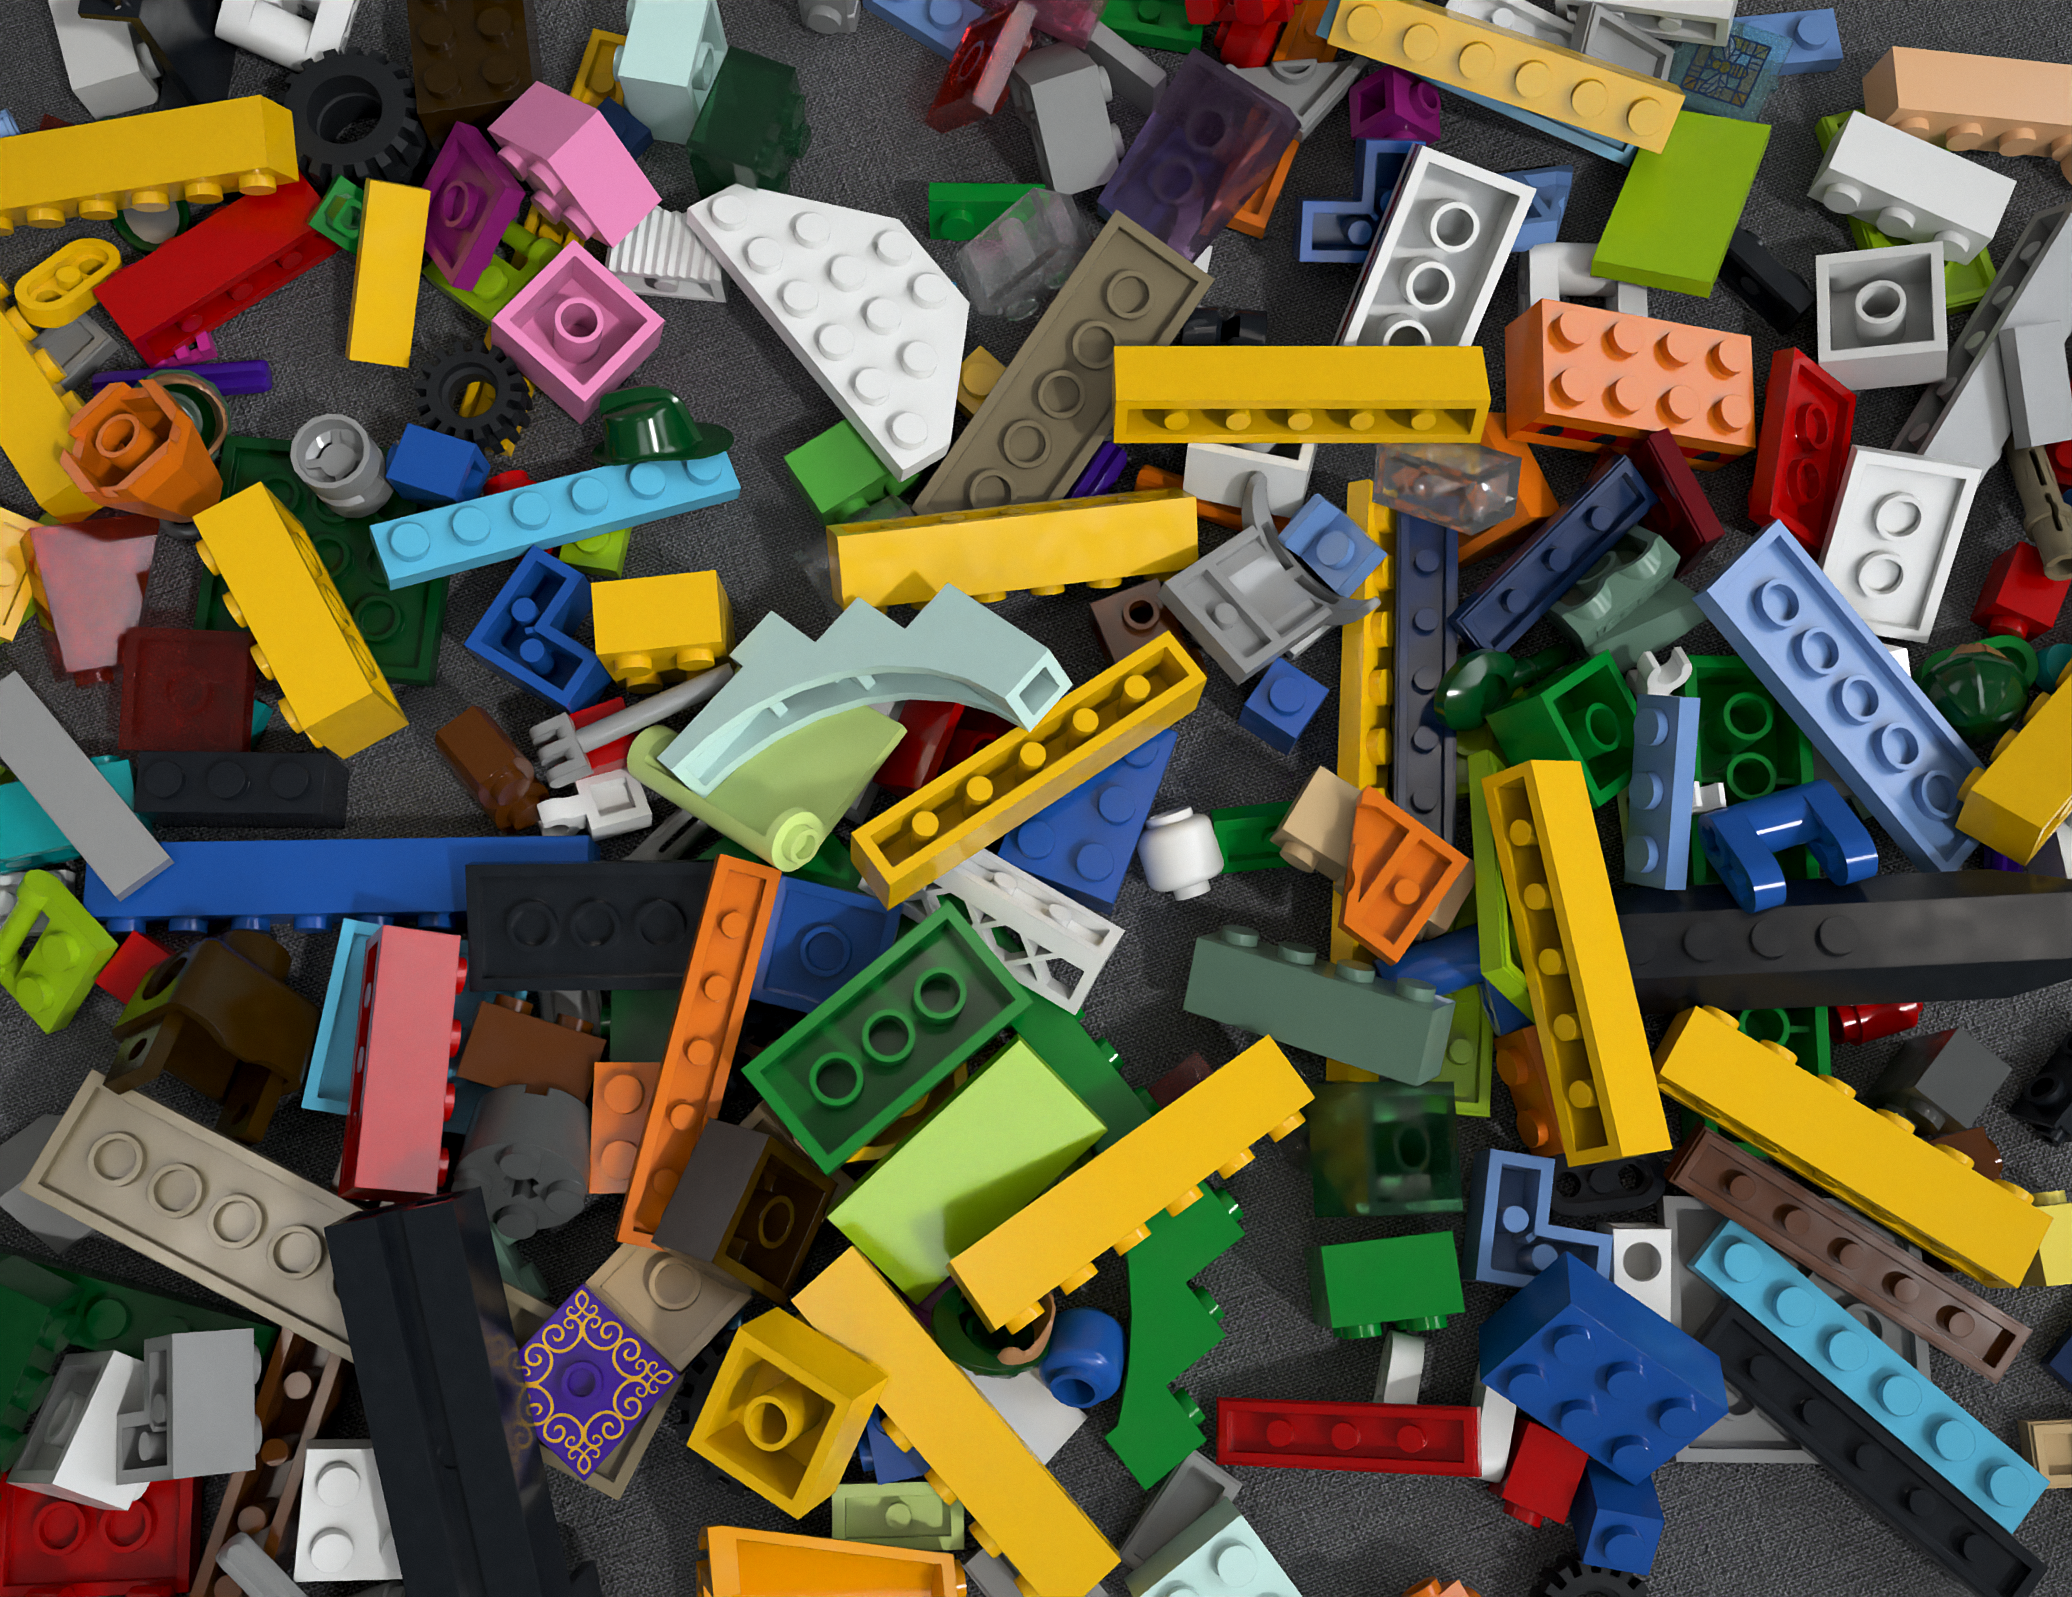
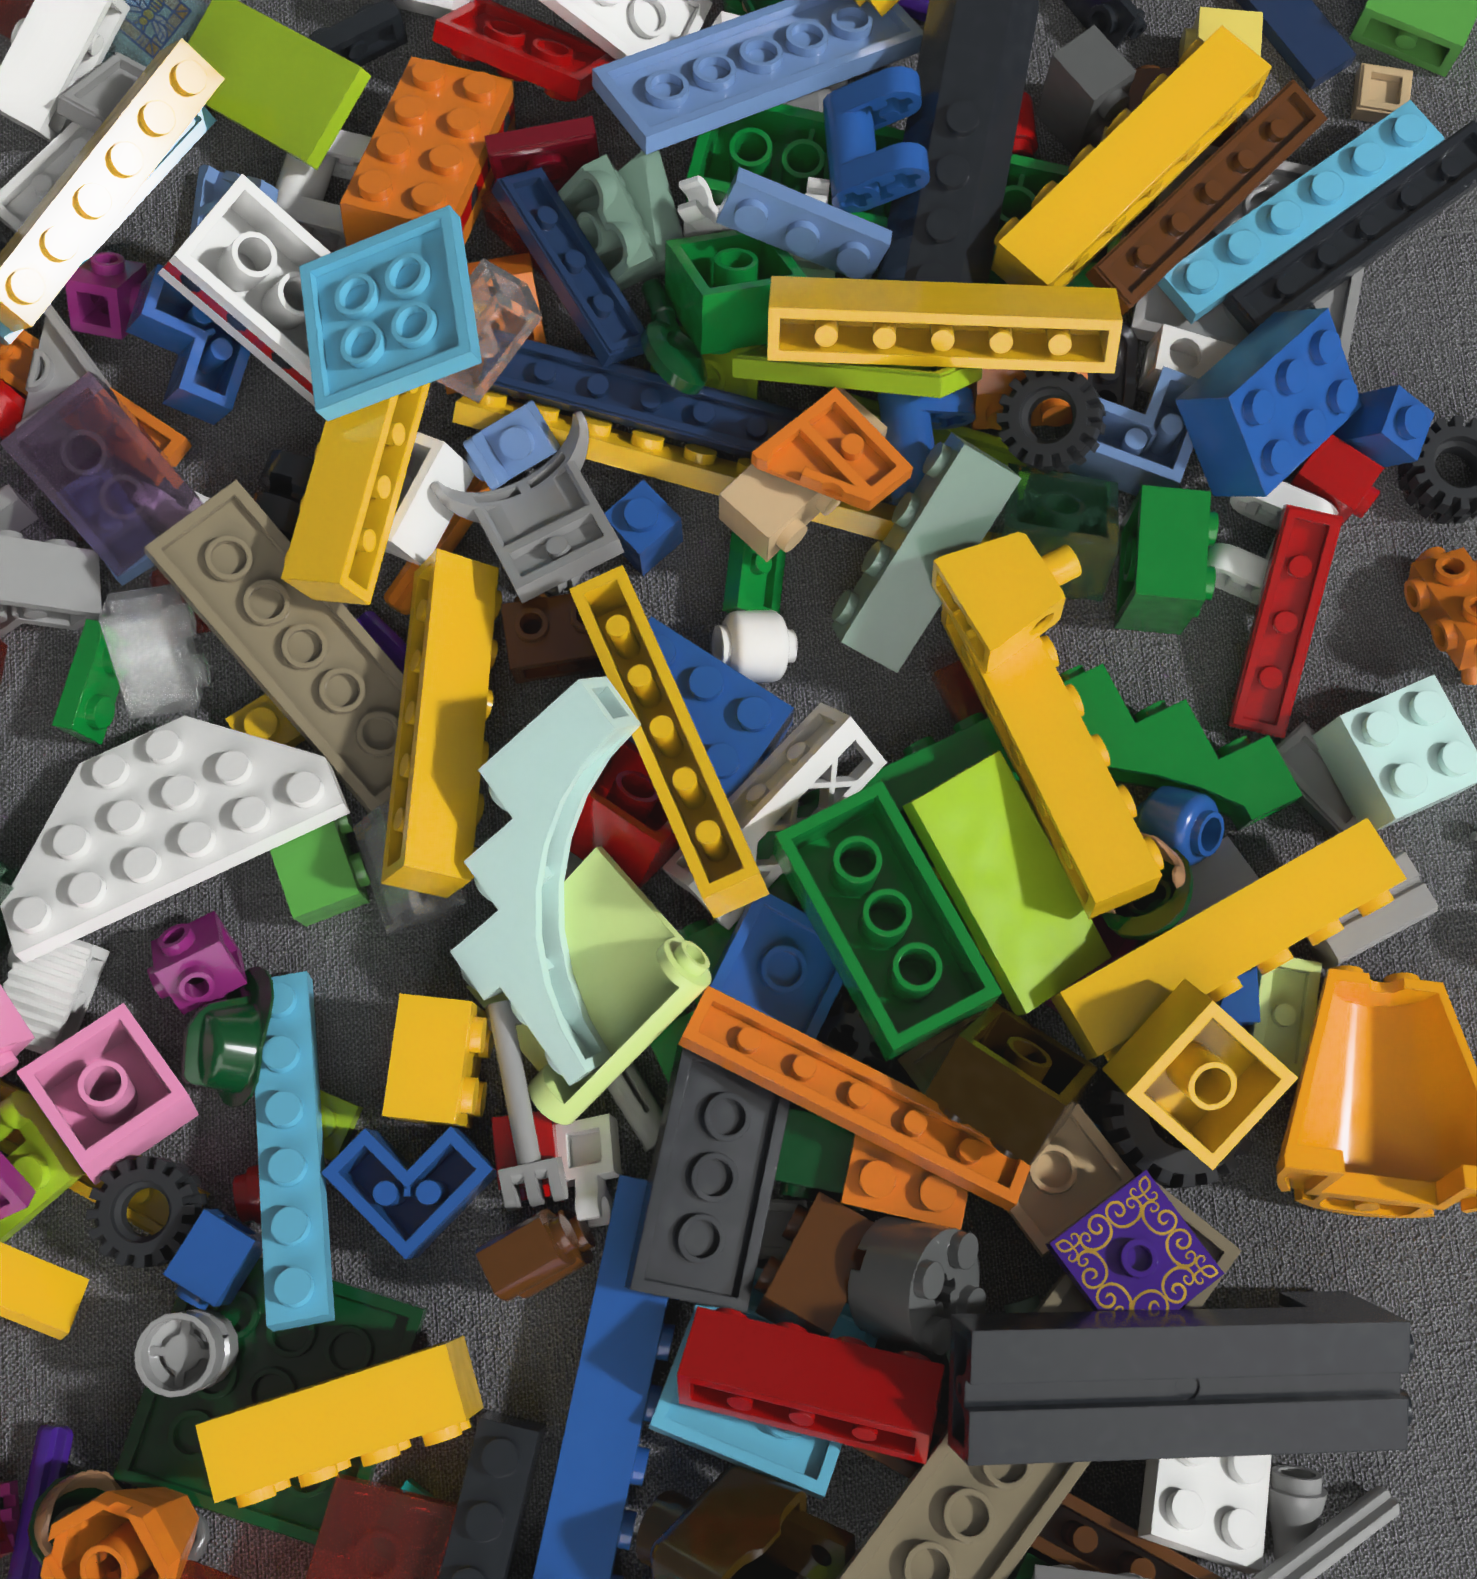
camera: 75 degrees left, 0 degrees up
(724, 381) = (196, 963): none -> magenta brick
(1280, 1097) = (1003, 593): none -> yellow torso
(1420, 374) = (389, 314): none -> medium azure plate
(1493, 1150) = (1070, 447): none -> black tyre

